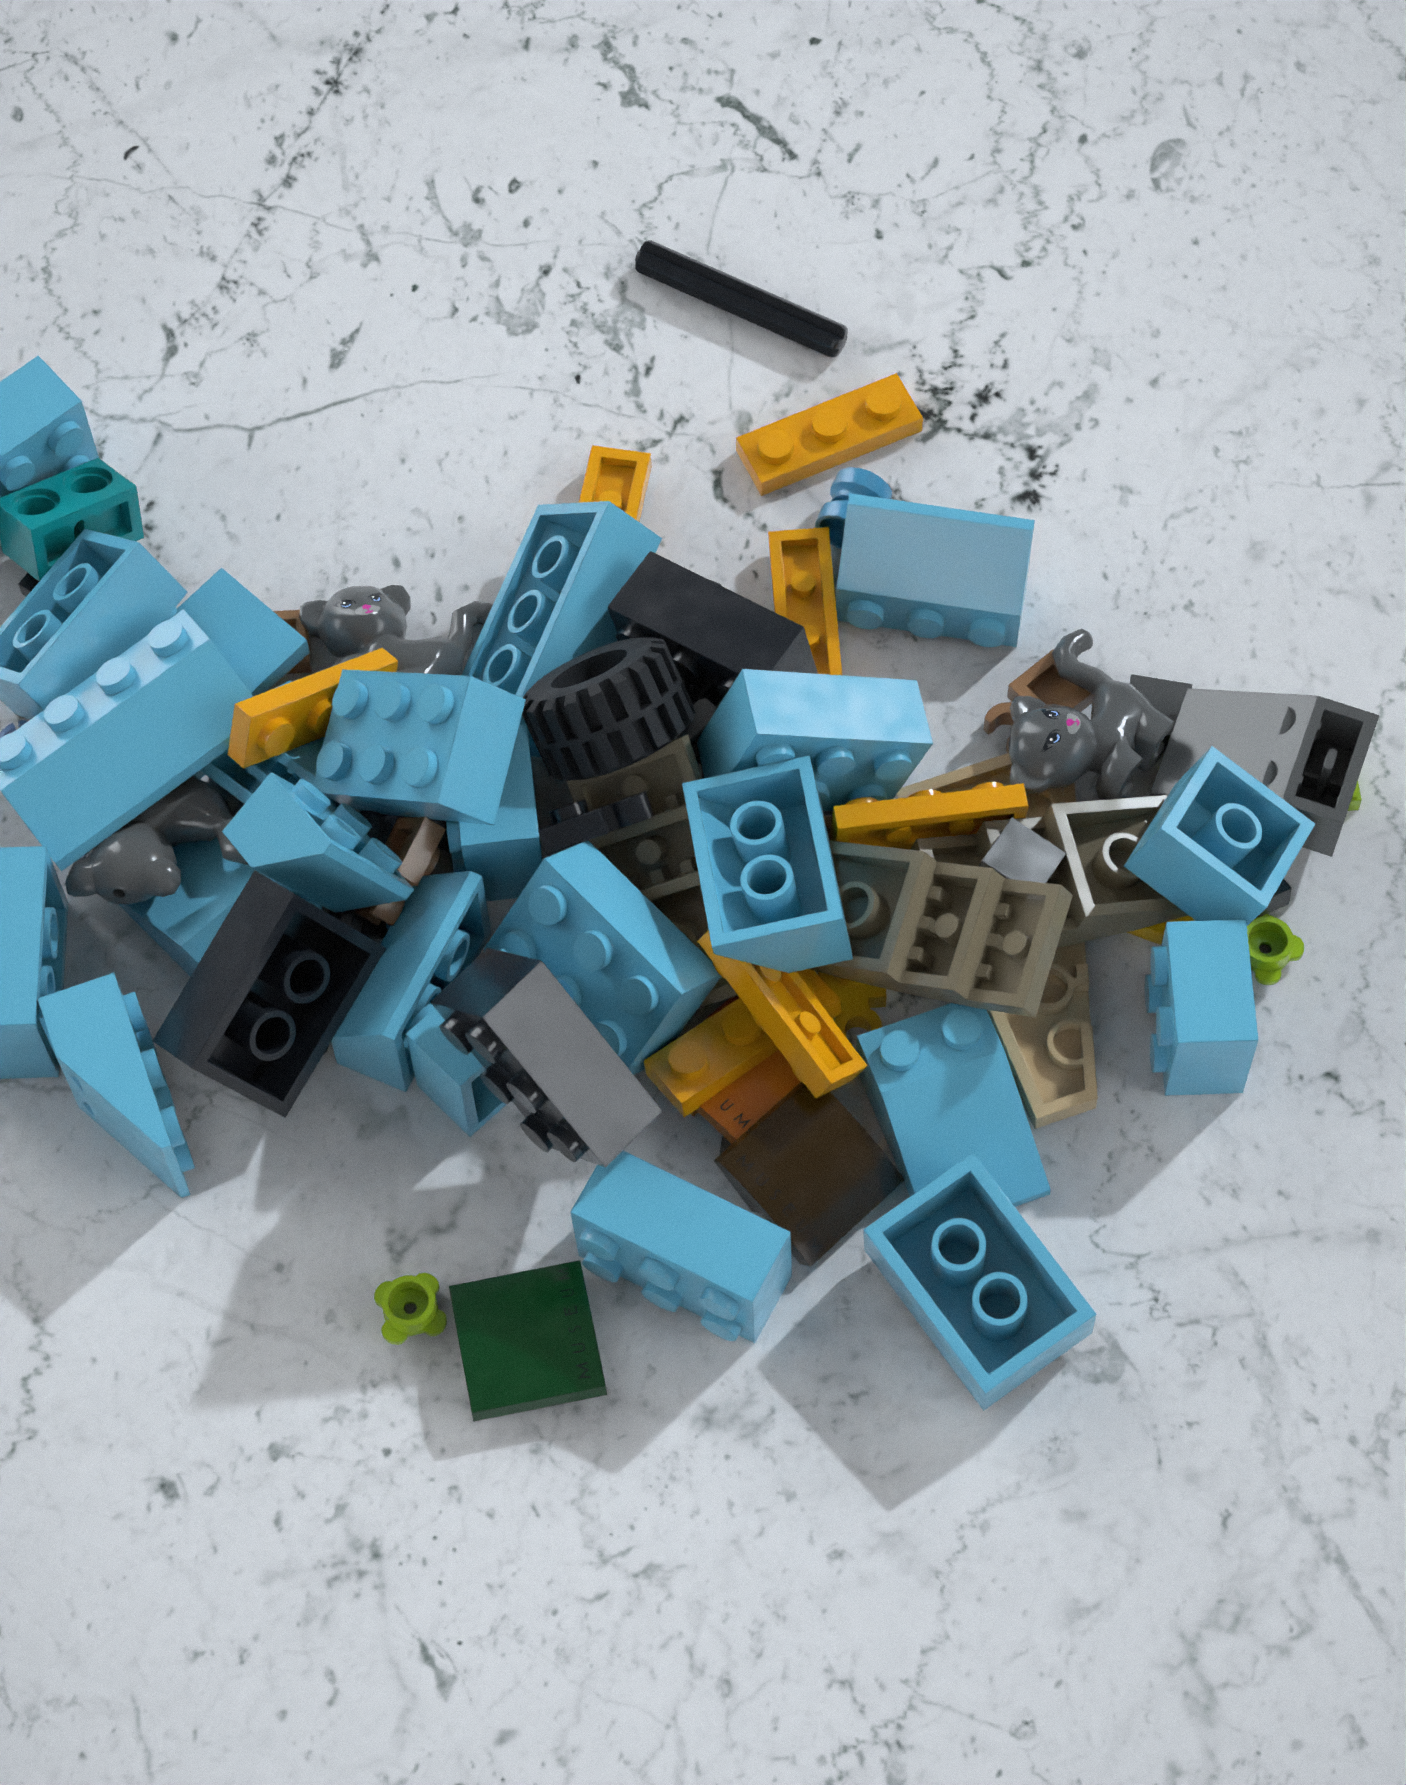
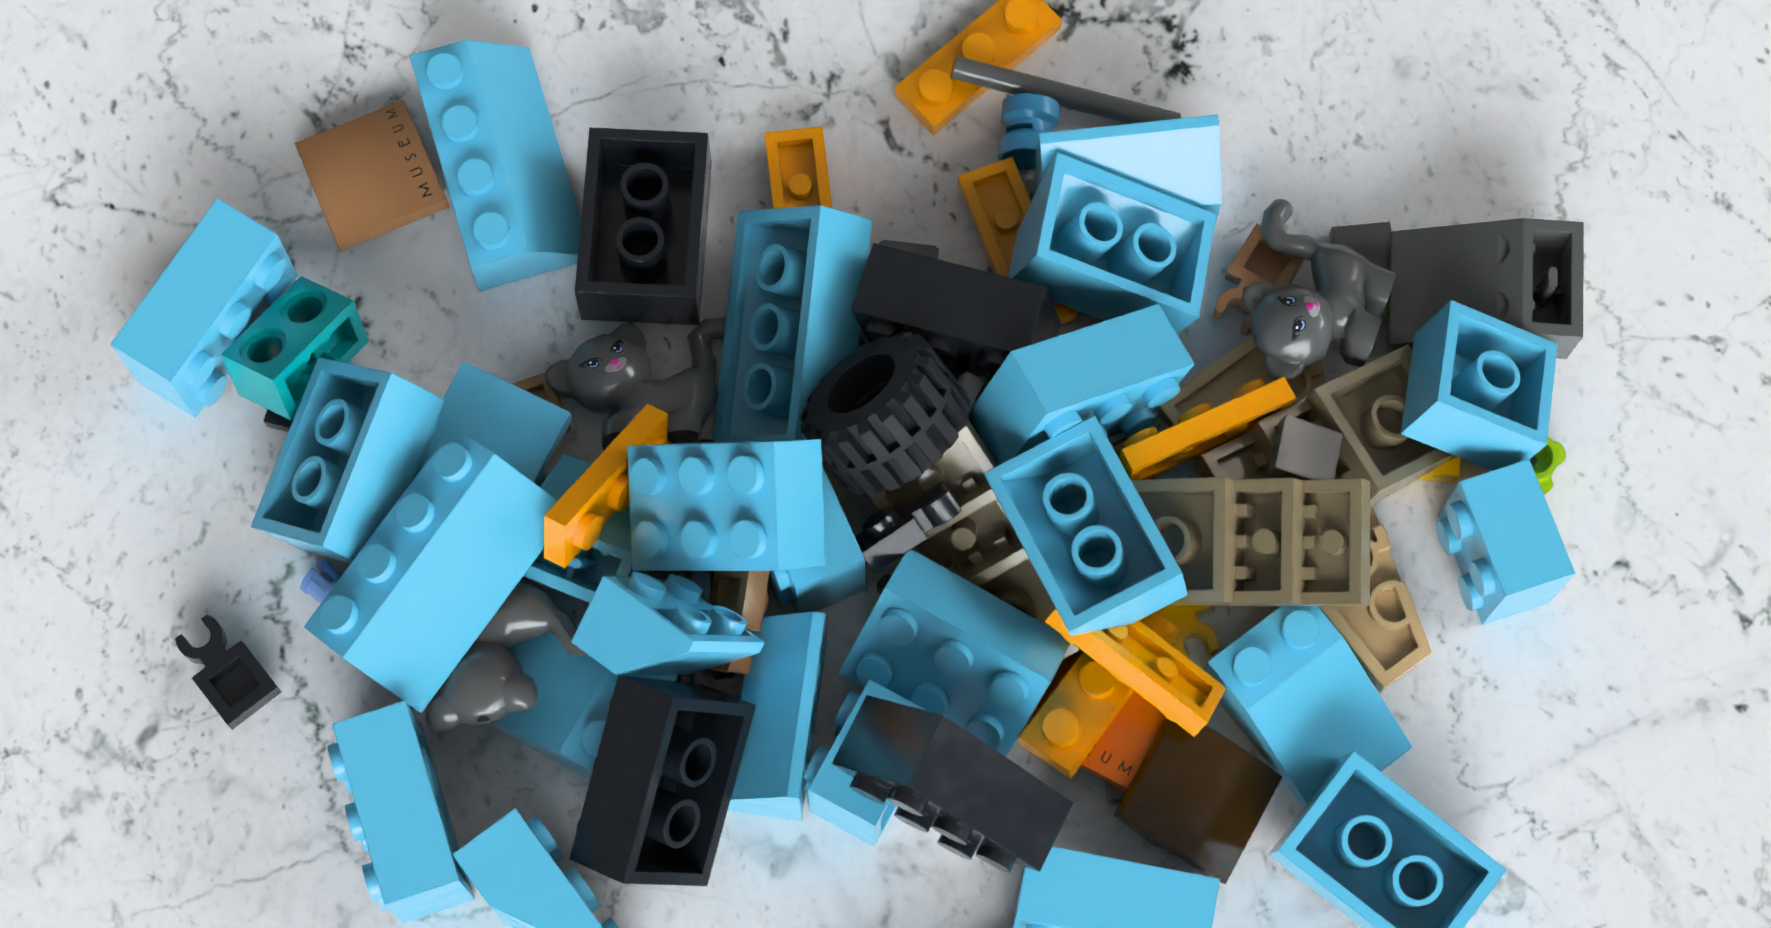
camera: 20 degrees left, 10 degrees up
(202, 392) = (372, 175): none -> medium nougat slope
(327, 409) = (499, 160): none -> medium azure slope
(441, 496) = (643, 226): none -> black brick
(847, 455) = (1065, 94): none -> dark grey bar
(897, 617) = (1113, 245): none -> medium azure slope

